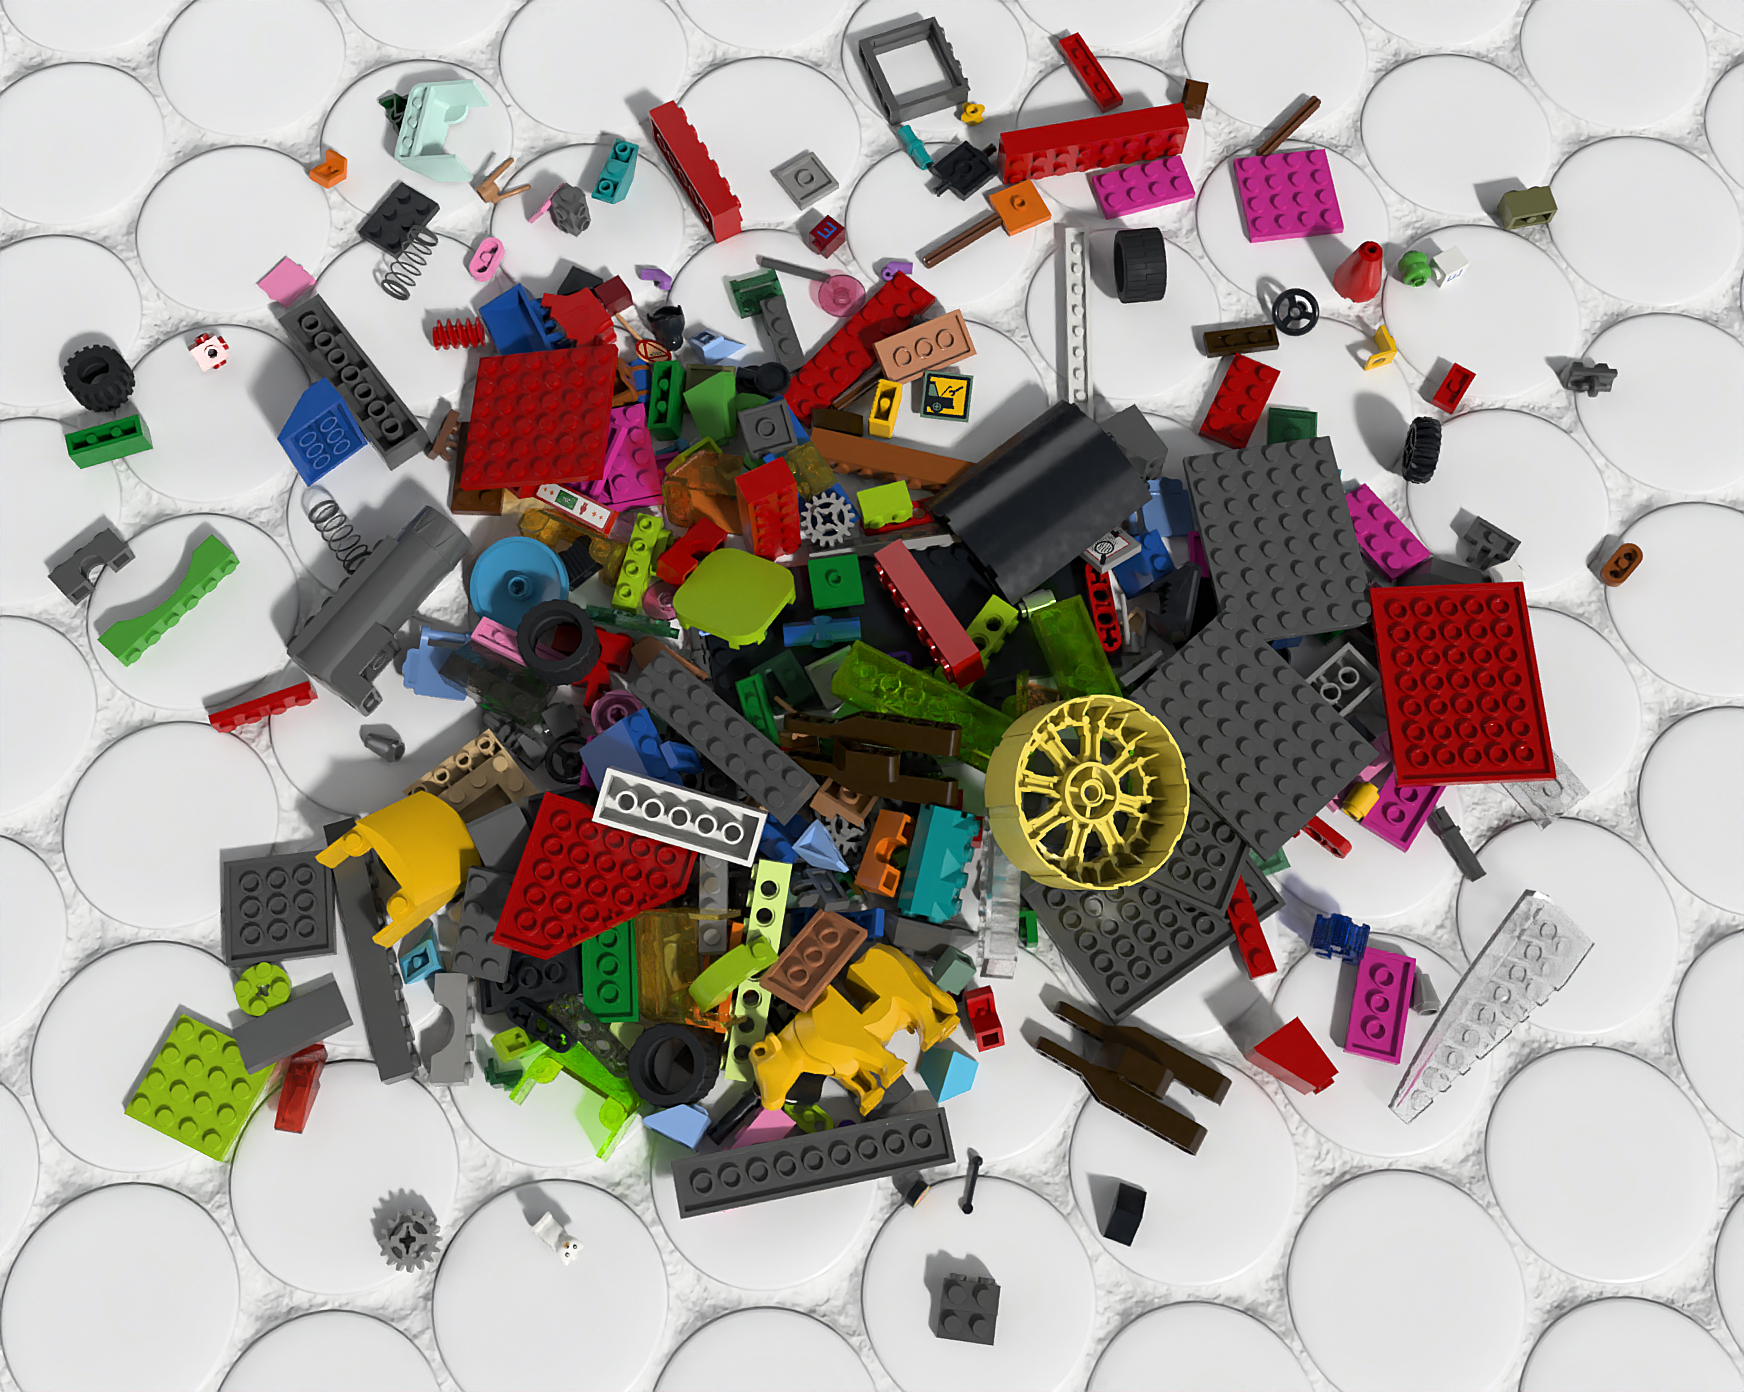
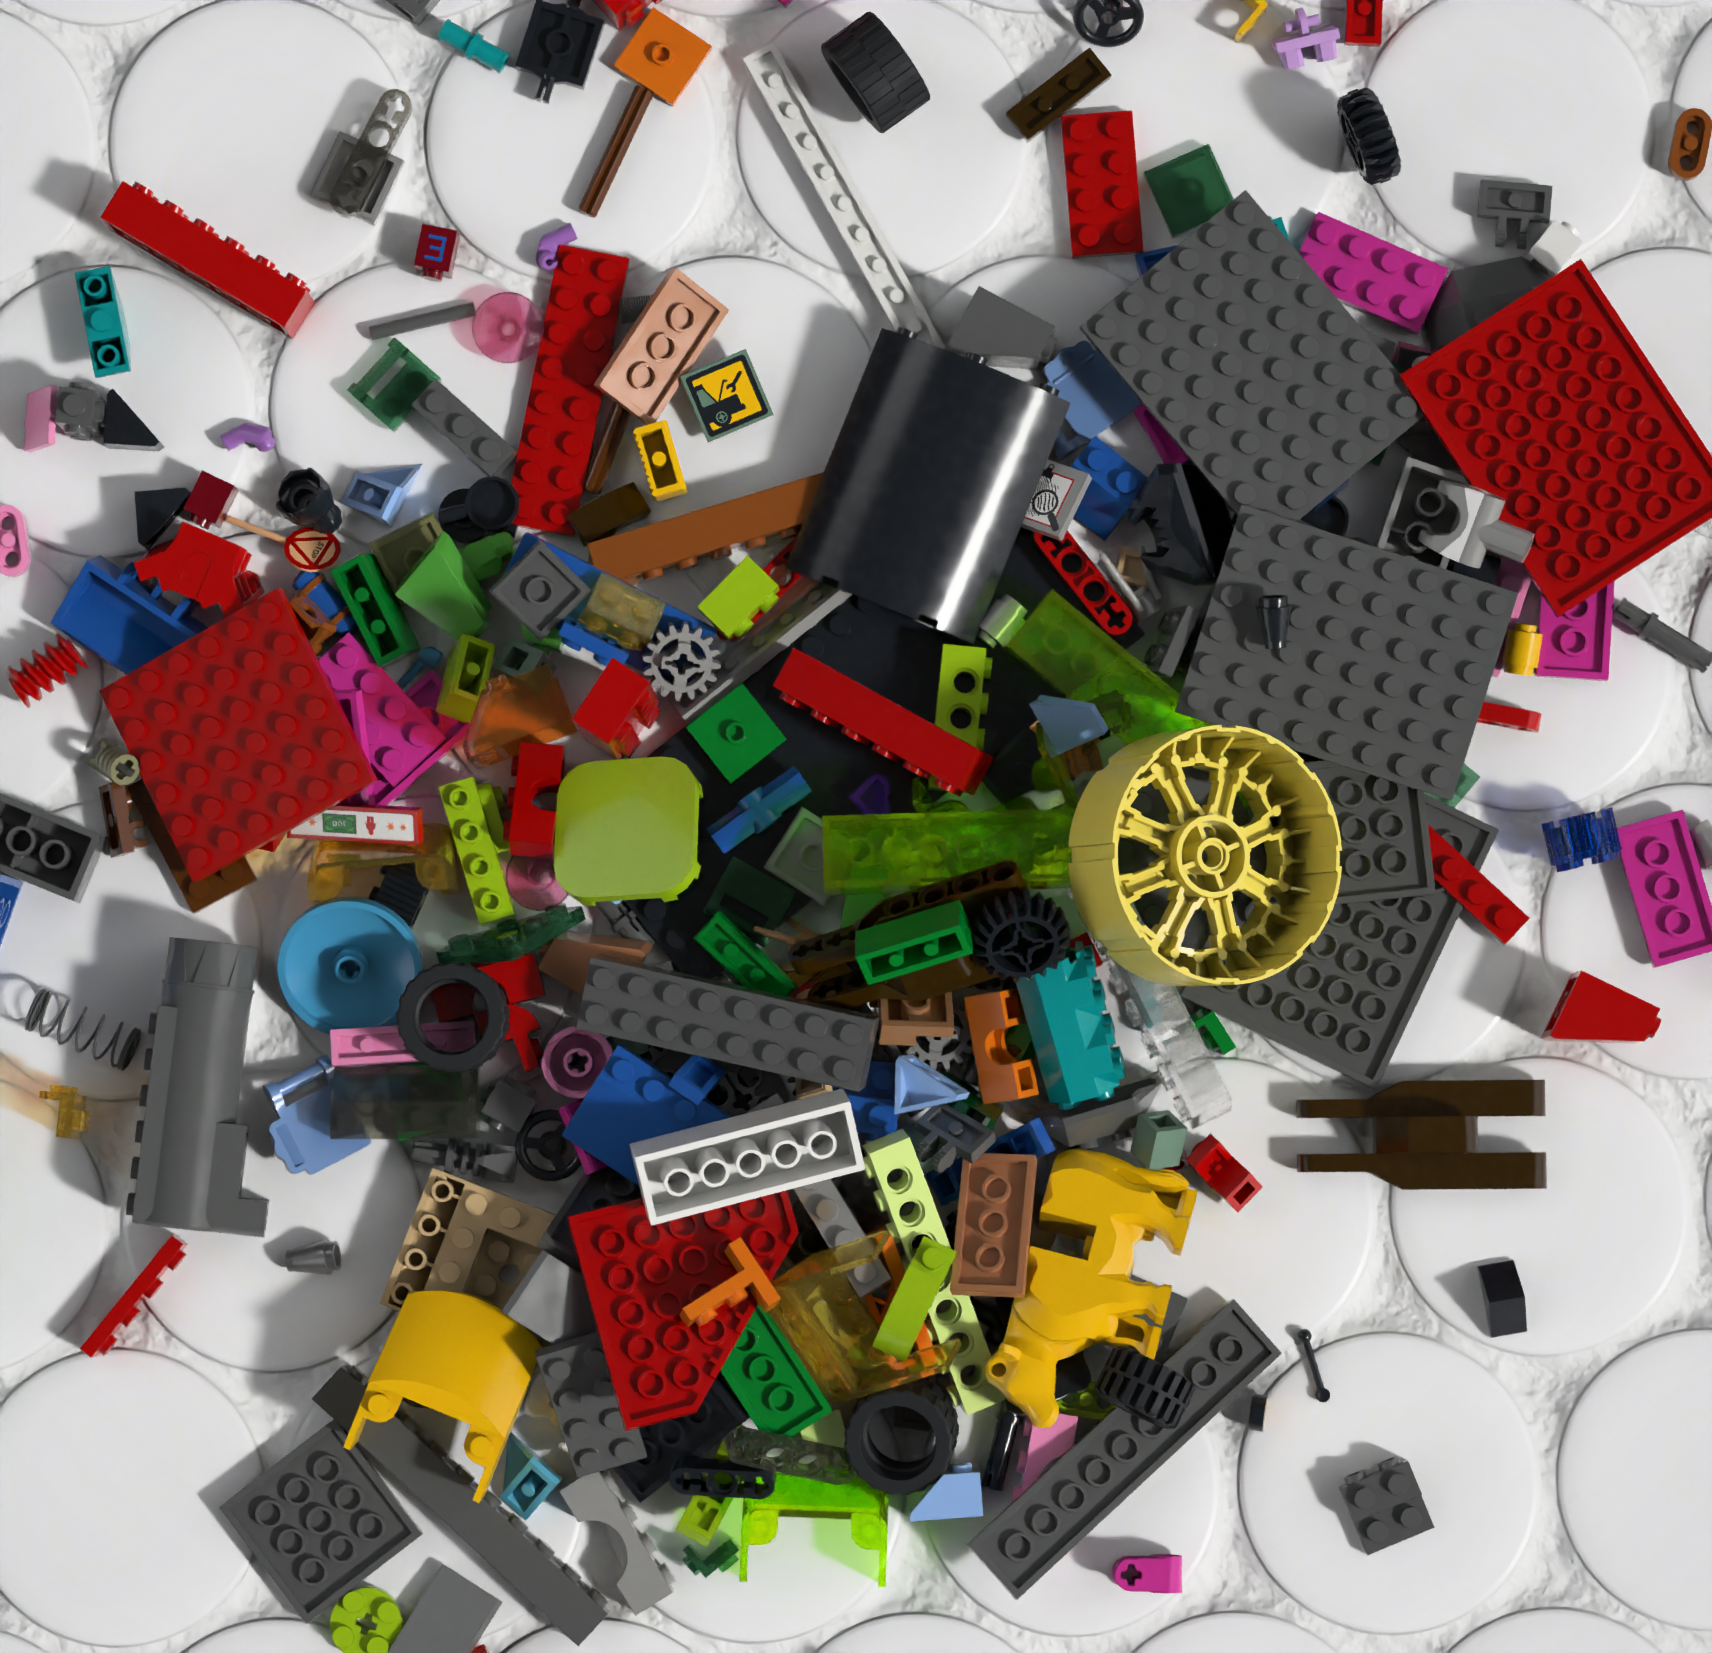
camera: 25 degrees left, 15 degrees up
(298, 576) = (72, 1115): none -> clear yellow bracket
(453, 400) = (107, 760): none -> olive hinge
(590, 235) = (125, 428): none -> black slope
(617, 893) = (733, 1291): none -> orange bracket
(786, 1264) = (1156, 1573): none -> dark pink piece
(825, 171) = (366, 151): none -> clear smoke beam
(849, 1123) = (1144, 1388): none -> black tyre
(867, 738) = (913, 942): none -> green brick
(916, 771) = (1042, 929): none -> black gear
(947, 1073) = (1216, 1260): medium azure slope -> none
(1045, 679) = (1068, 721): none -> light blue slope
(1212, 680) = (1274, 620): none -> black cone
(1373, 701) = (1478, 528): none -> light grey connector
(1418, 390) = (1321, 38): none -> lavender hips

